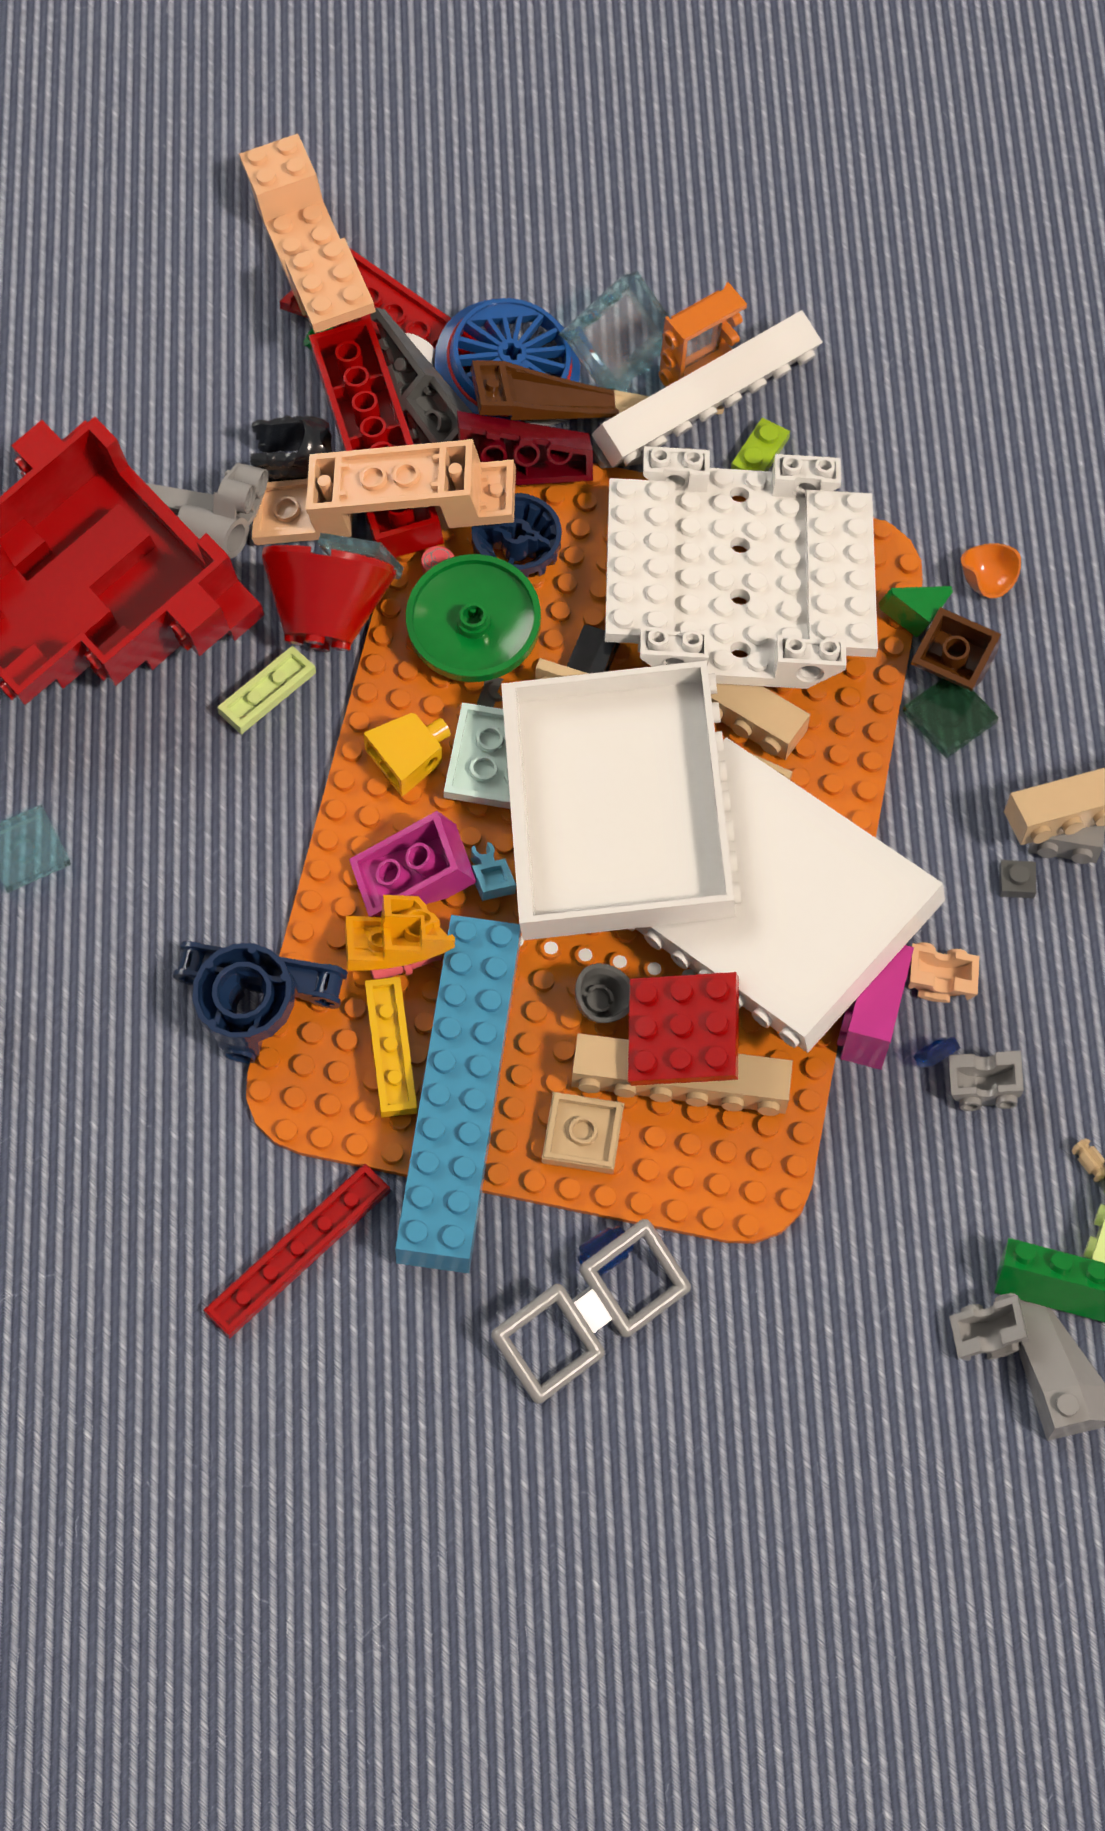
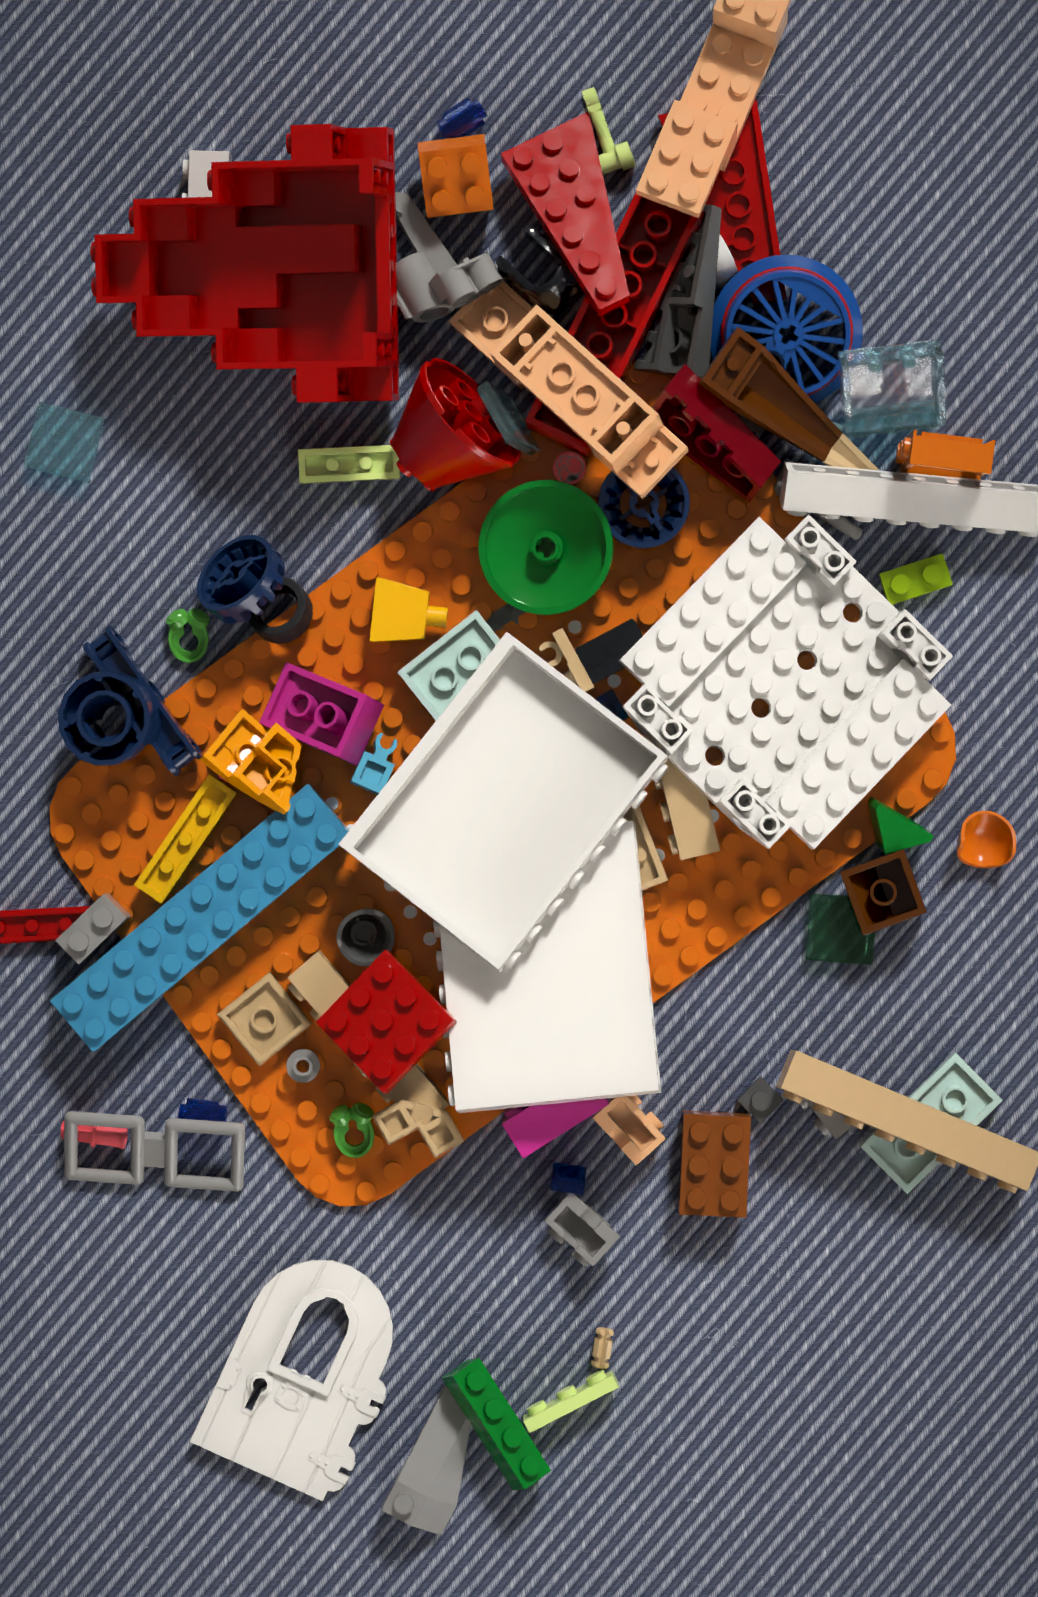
camera: 50 degrees right, 25 degrees up
(136, 407) = (462, 119): none -> clear blue brick
(166, 437) = (455, 176): none -> orange brick
(234, 903) = (198, 620): none -> bright green piece
(258, 818) = (240, 579): none -> dark blue gear
(267, 385) = (568, 195): none -> red wing
(272, 352) = (613, 156): none -> yellowish green brick
(294, 810) = (296, 625): none -> black tyre
(378, 1172) = (93, 928): none -> light grey brick
(532, 1342) = (101, 1135): none -> coral axle
(645, 1149) = (311, 1058): none -> light grey plate
(717, 1154) = (362, 1115): none -> bright green piece
(795, 1082) = (407, 1116): none -> tan tile
(917, 1431) = (297, 1423): none -> white door
(990, 1330) = (410, 1401): light grey cylinder -> none
(1033, 946) = (714, 1163): none -> dark orange brick

